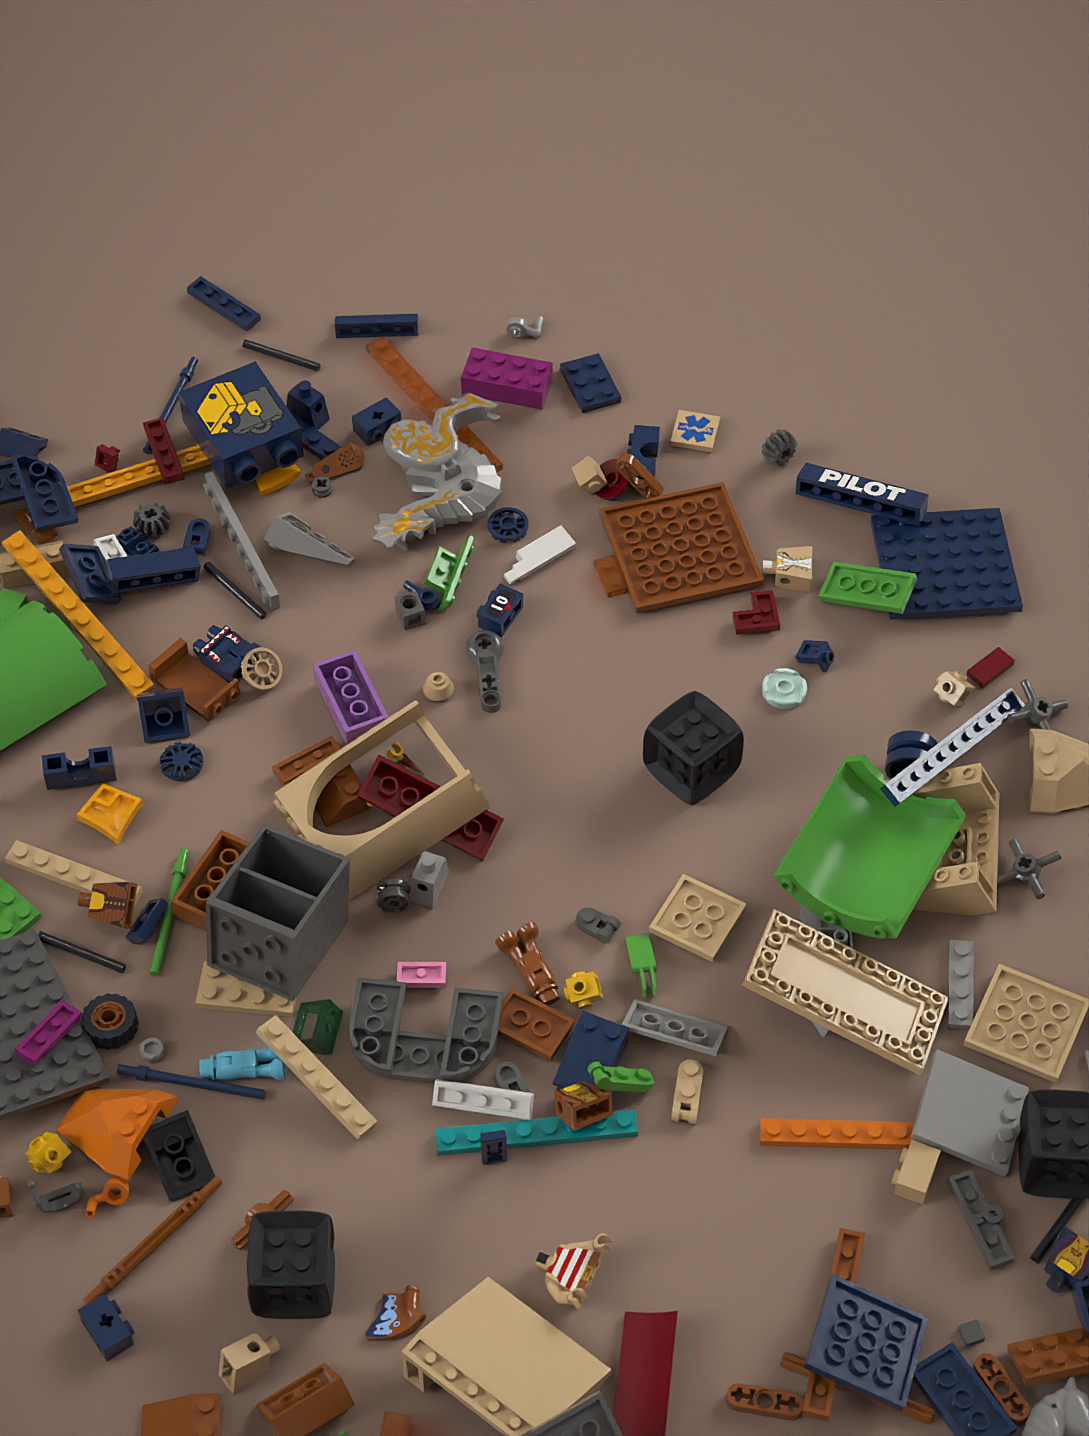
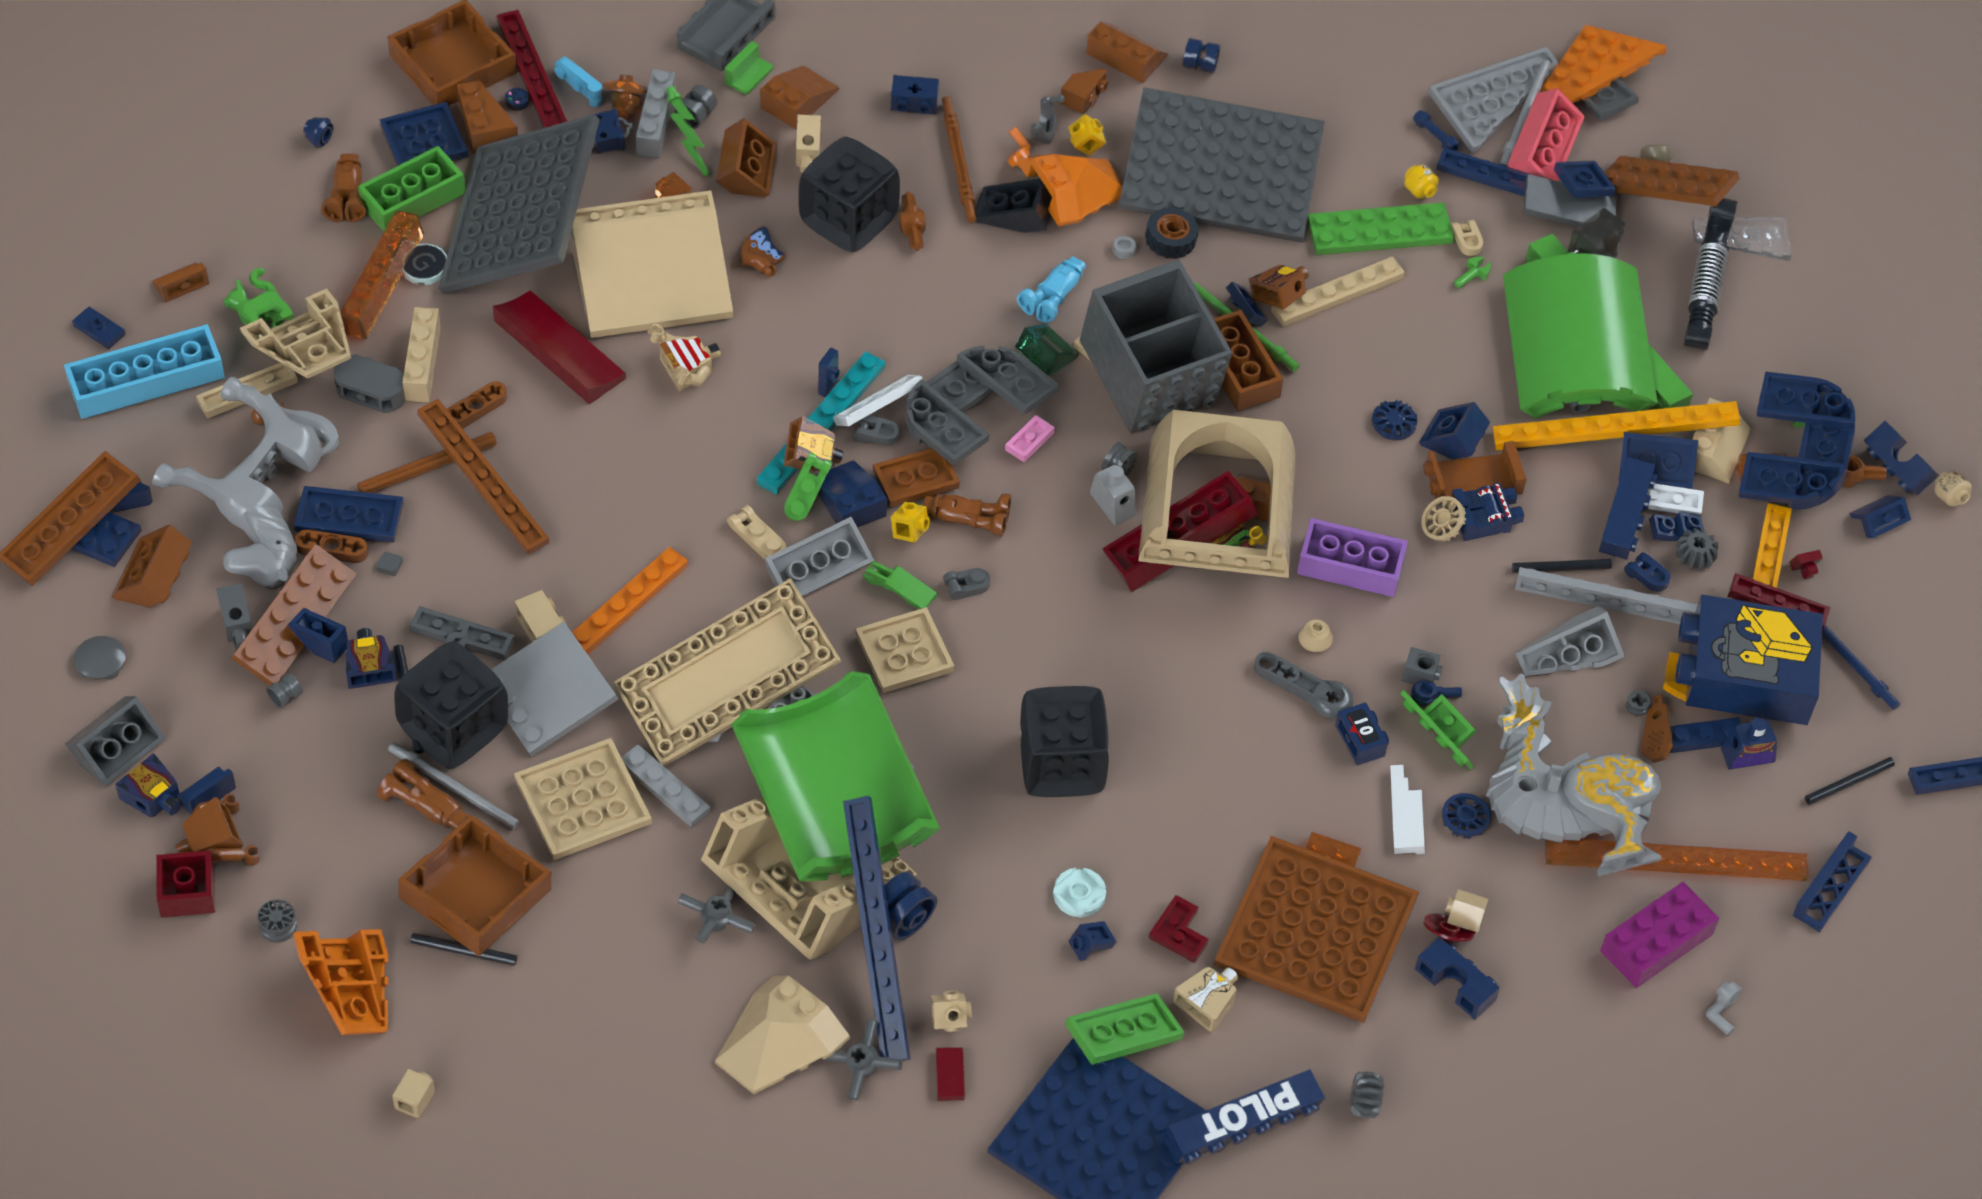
camera: 125 degrees right, 0 degrees up
(48, 1033) = (1185, 174): magenta plate -> none
(64, 773) = (1436, 349): dark blue arch -> none
(82, 952) = (1256, 256): black piece -> none
(110, 811) = (1381, 342): light orange plate -> none
(143, 1073) = (1106, 230): dark blue bar -> none
(304, 760) = (1314, 493): dark orange plate -> none
(316, 1077) = (996, 310): tan plate -> none
(375, 420) = (1687, 793): dark blue brick -> none
(590, 383) = (1601, 1012): dark blue plate -> none
(631, 467) = (1422, 936): dark orange beam -> none
(695, 431) = (1458, 1054): tan tile -> none
(866, 1342) = (444, 473): dark blue plate -> none

